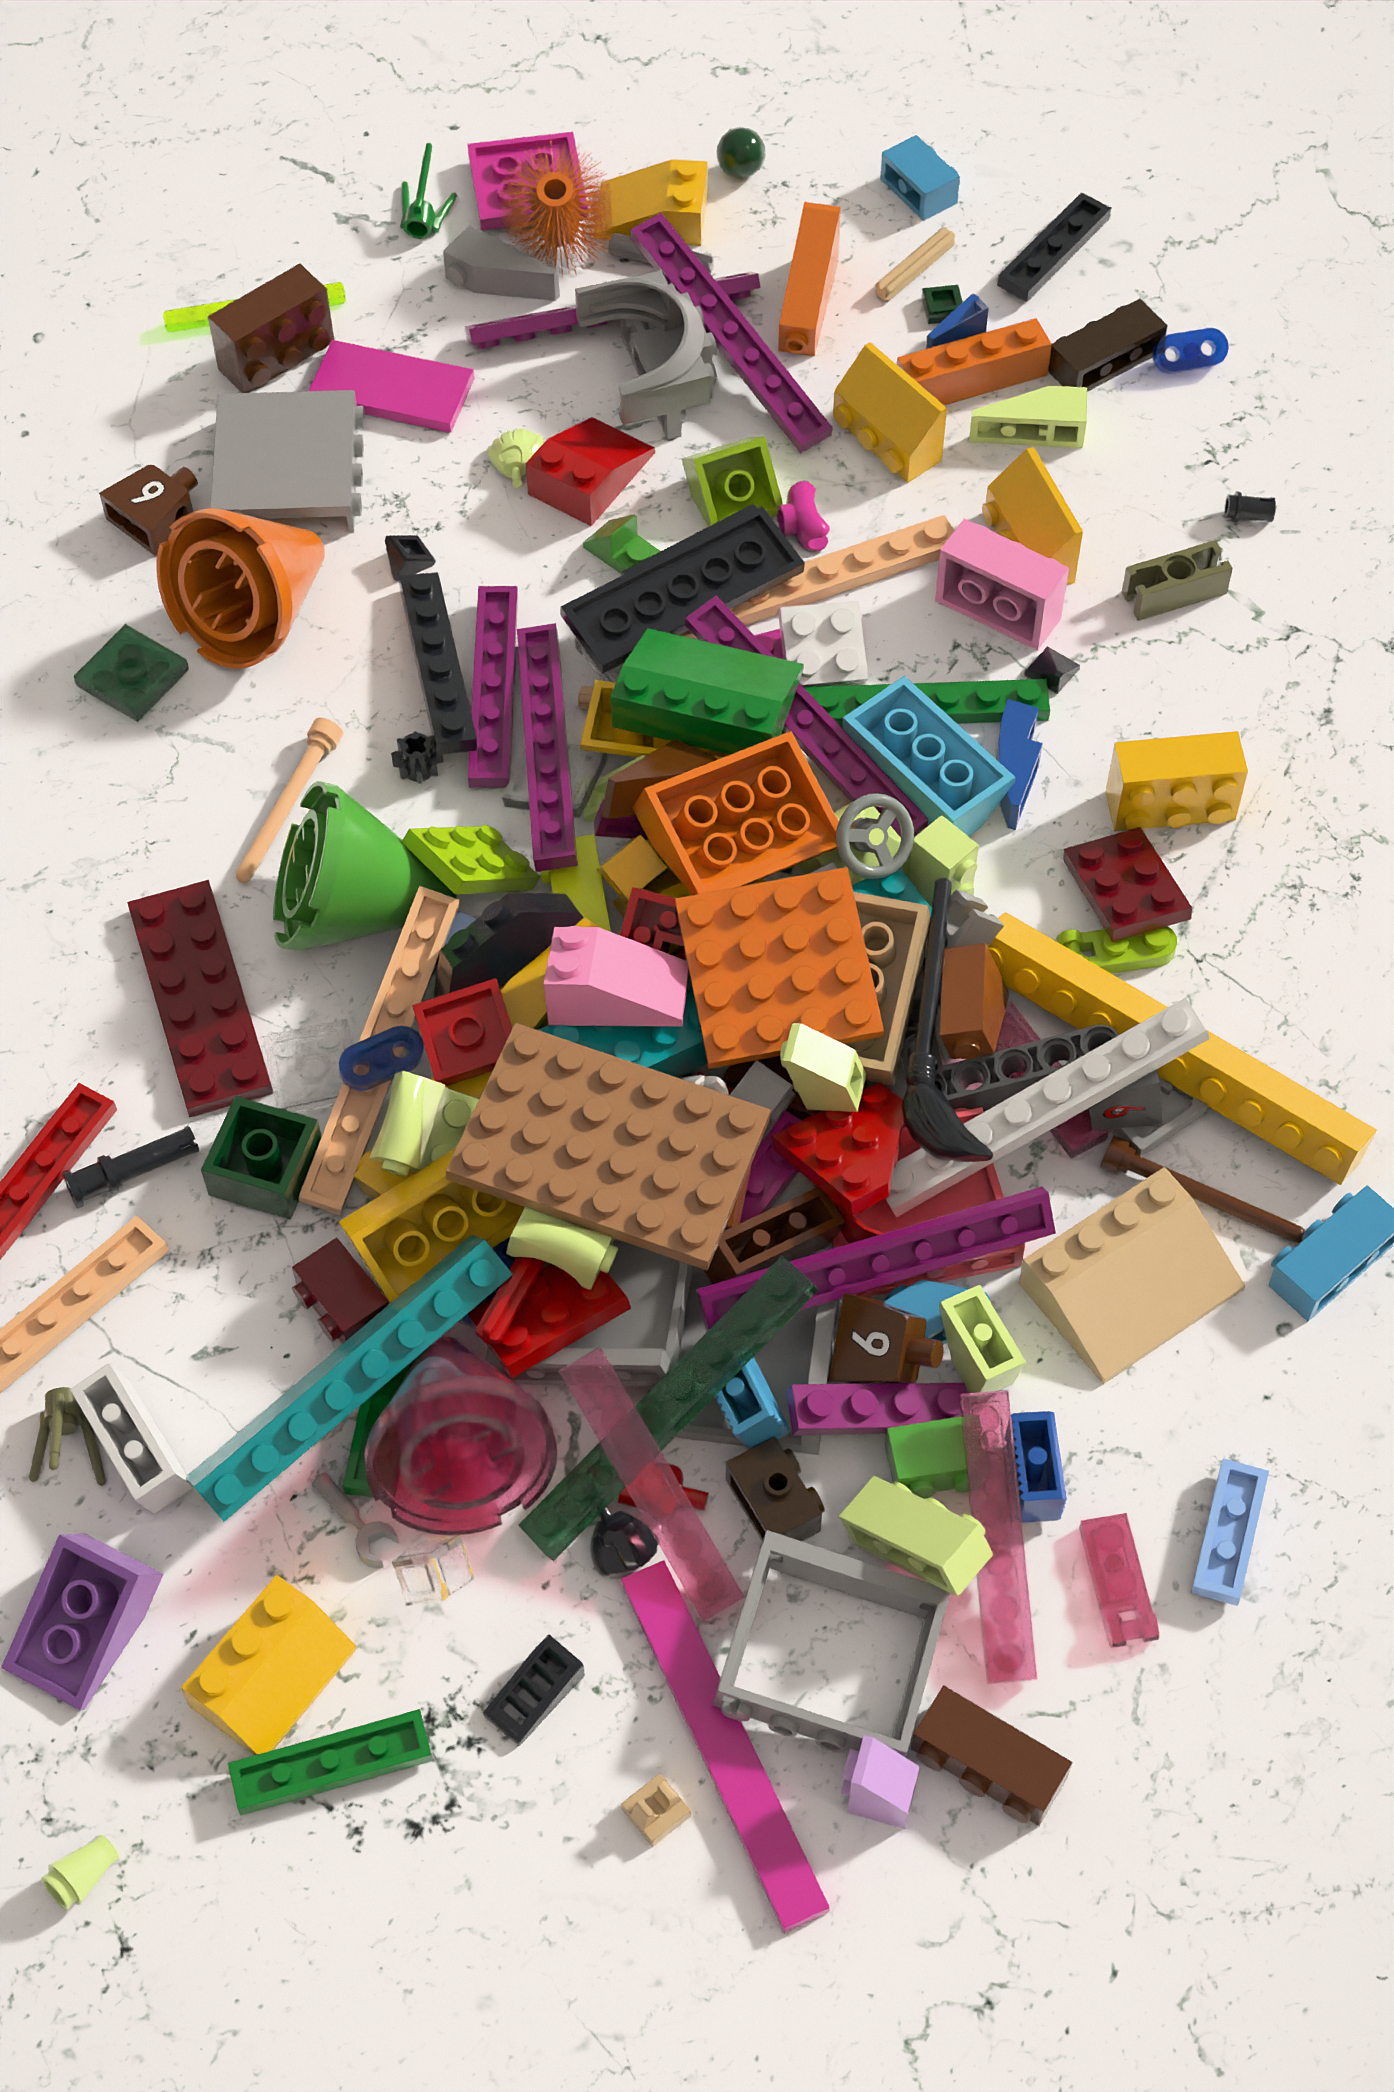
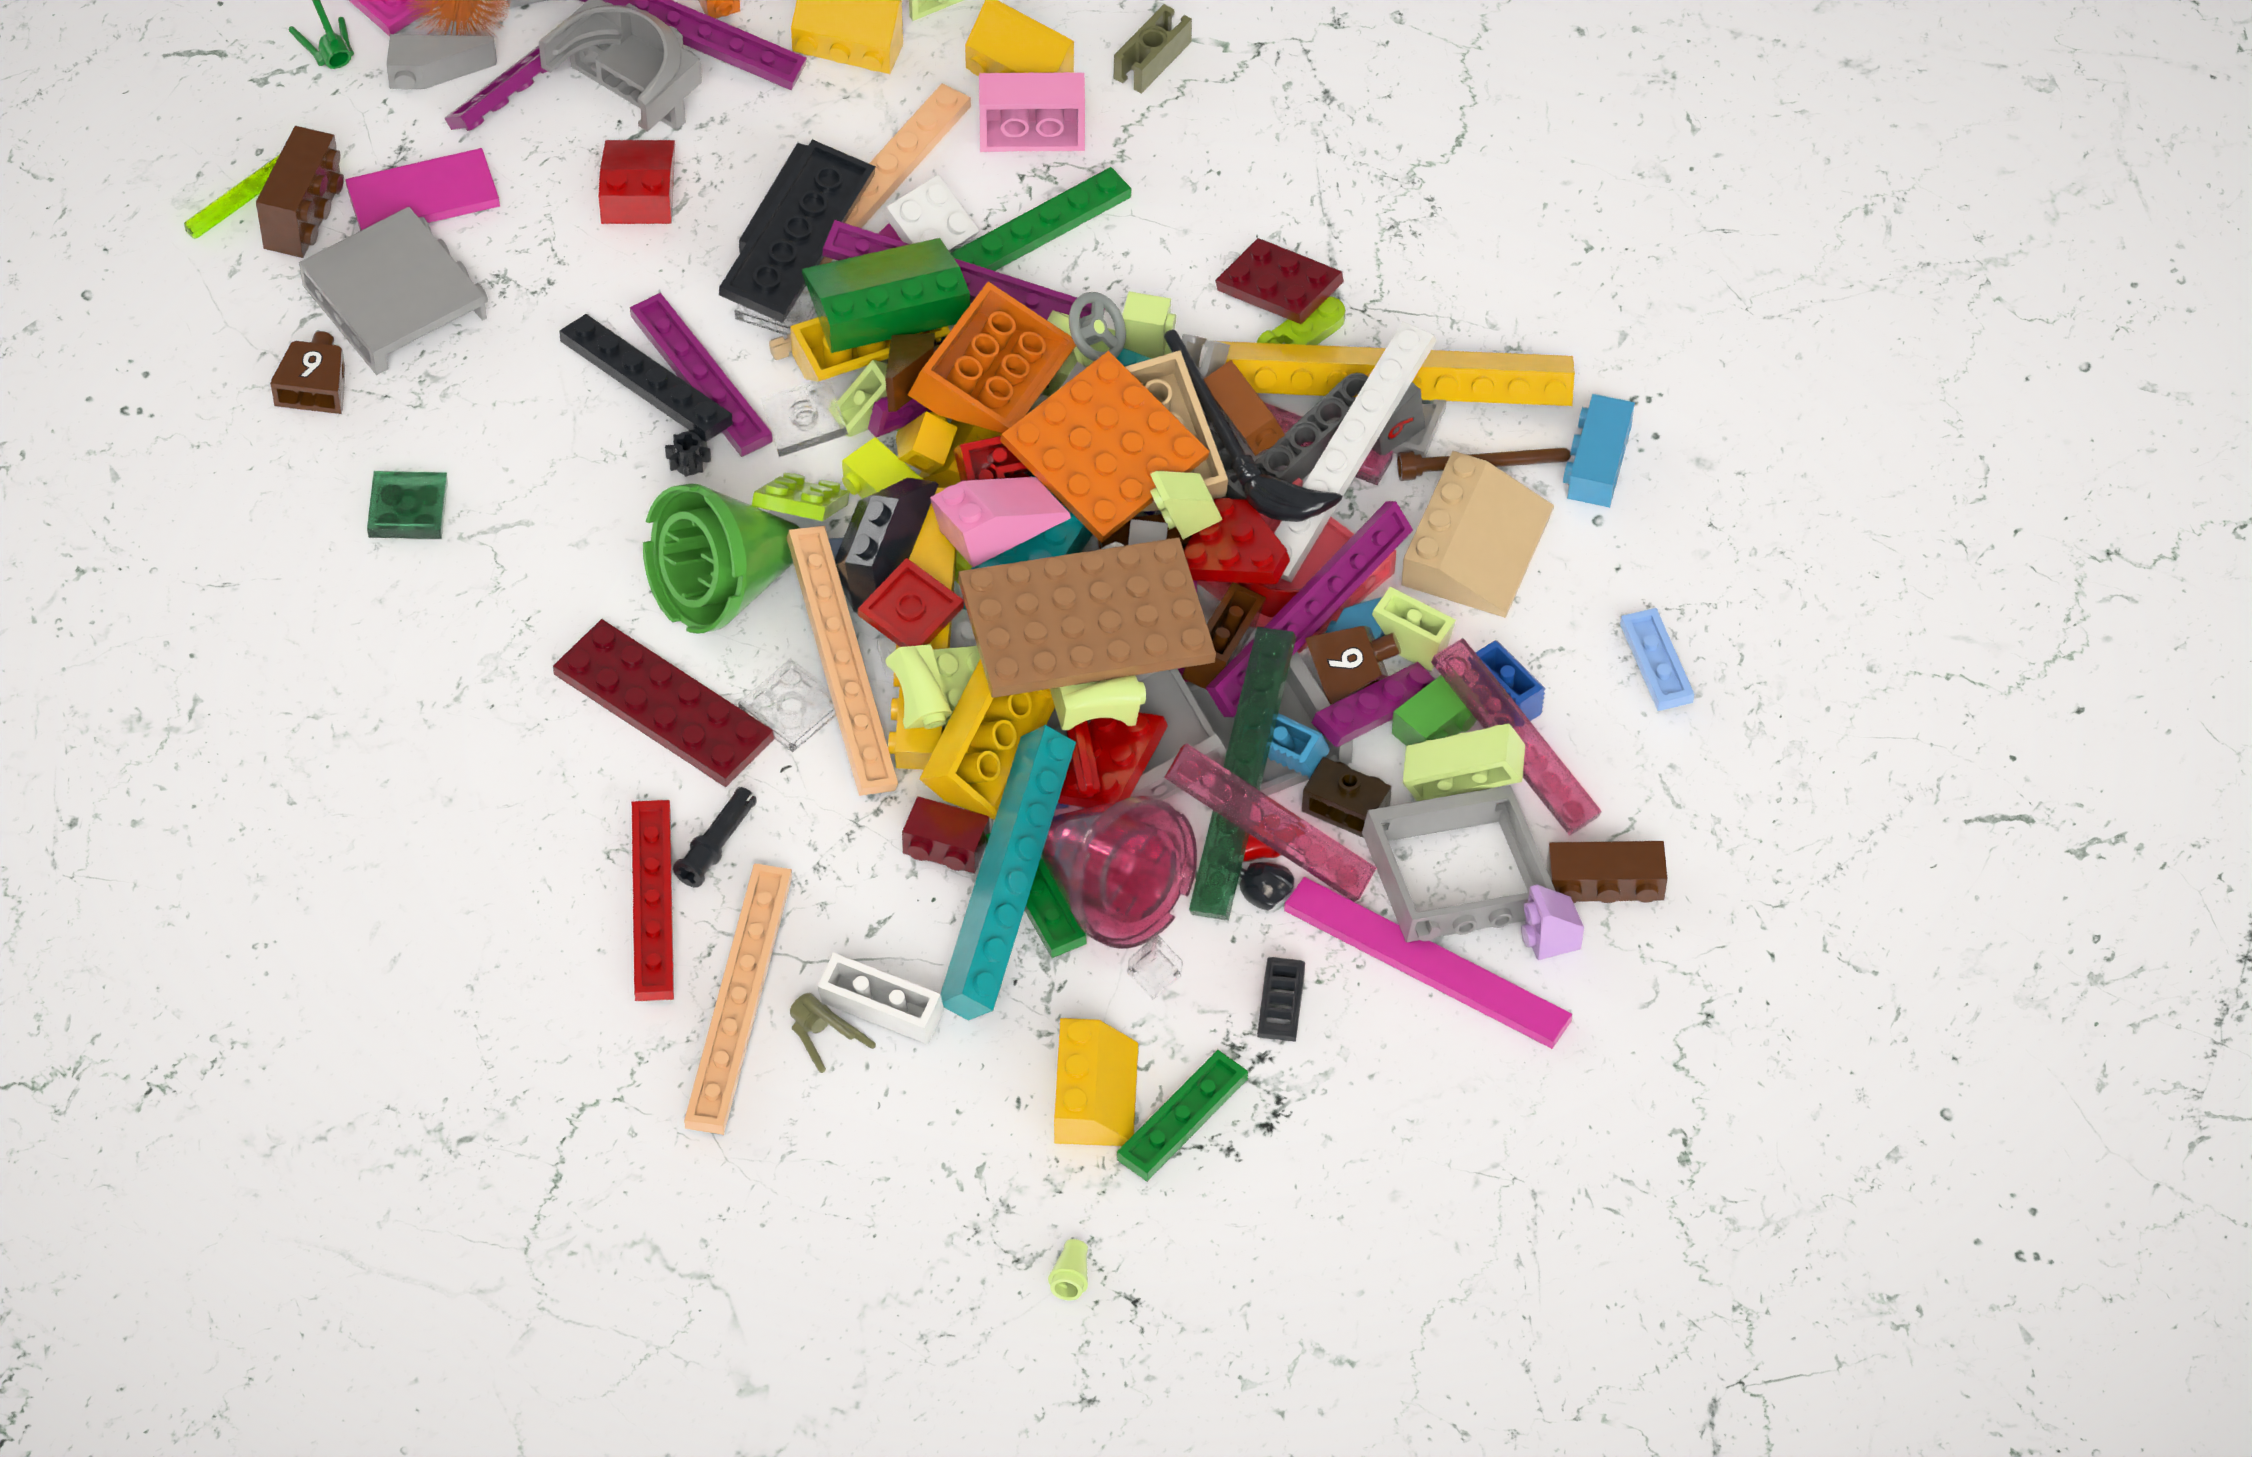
camera: 35 degrees left, 5 degrees down
(80, 1618) = (939, 1128): medium lavender slope -> none
(236, 582) = (453, 397): orange cone -> none
(261, 1157) = (816, 776): dark green brick -> none
(322, 738) = (601, 476): light nougat piece -> none
(350, 1513) = (1066, 968): light grey piece -> none
(378, 1056) = (853, 663): clear blue plate -> none
(407, 555) = (549, 314): black slope -> none
(512, 452) = (569, 197): yellowish green piece -> none
(546, 749) = (787, 393): magenta plate -> none
(619, 544) = (710, 227): bright green slope -> none
(656, 1810) = (1416, 1023): tan tile -> none
(732, 479) = (761, 134): lime slope -> none
(801, 517) = (836, 134): dark pink piece -> none
(929, 756) = (1075, 258): medium azure slope -> none
(1019, 756) = (1134, 235): blue slope -> none
(1054, 668) = (1105, 156): black slope -> none
(1118, 1579) = (1606, 728): clear pink plate -> none
(1176, 781) = (1265, 190): yellow brick -> none

